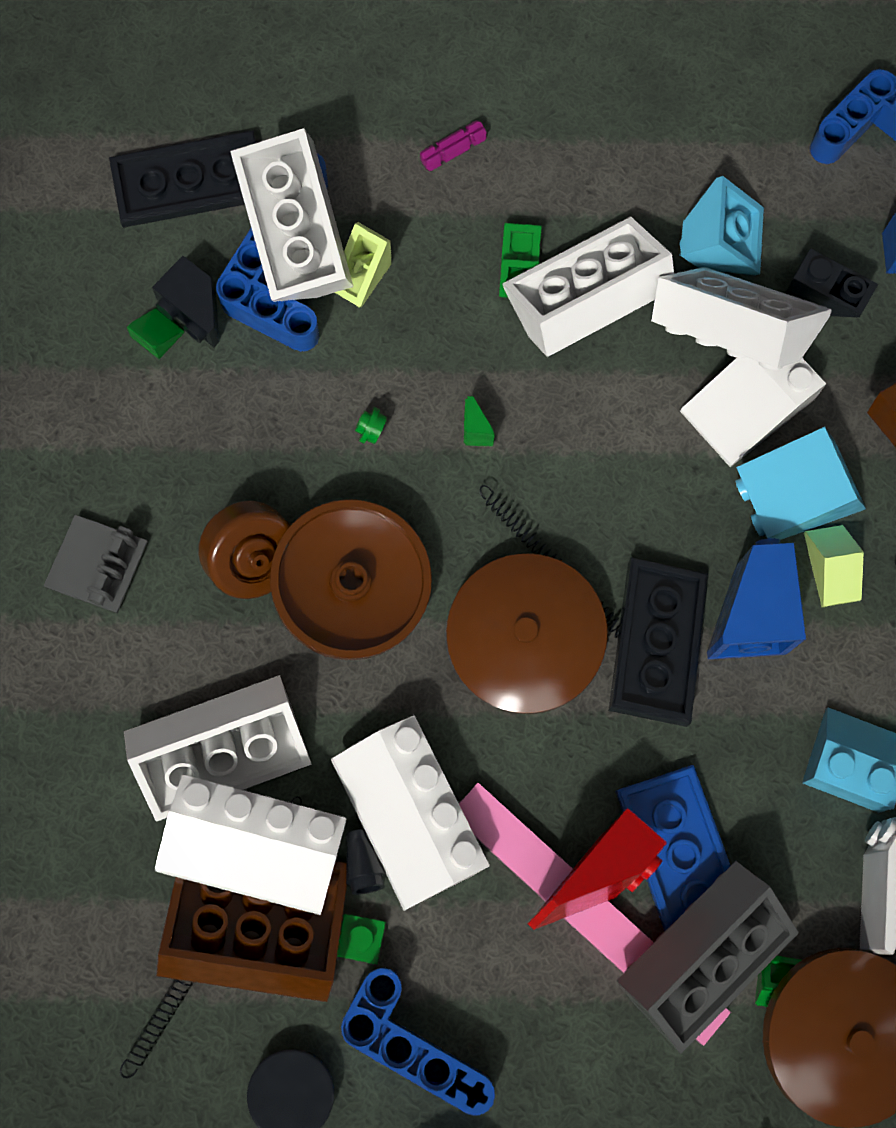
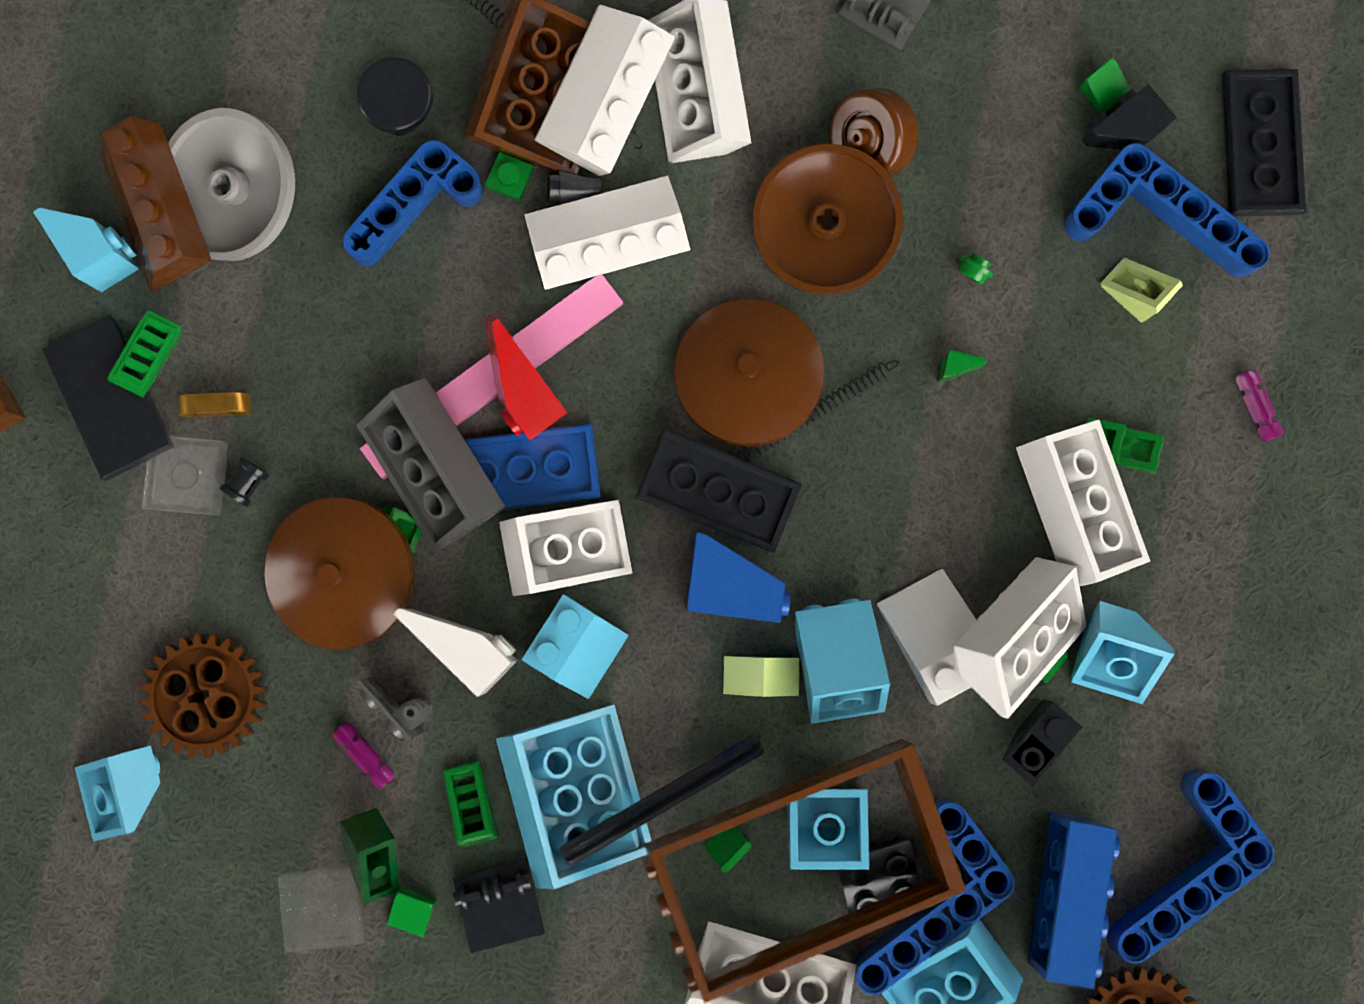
camera: 95 degrees right, 10 degrees up
(291, 217) = (1196, 220): white slope -> none
(758, 792) = (565, 547): none -> white slope

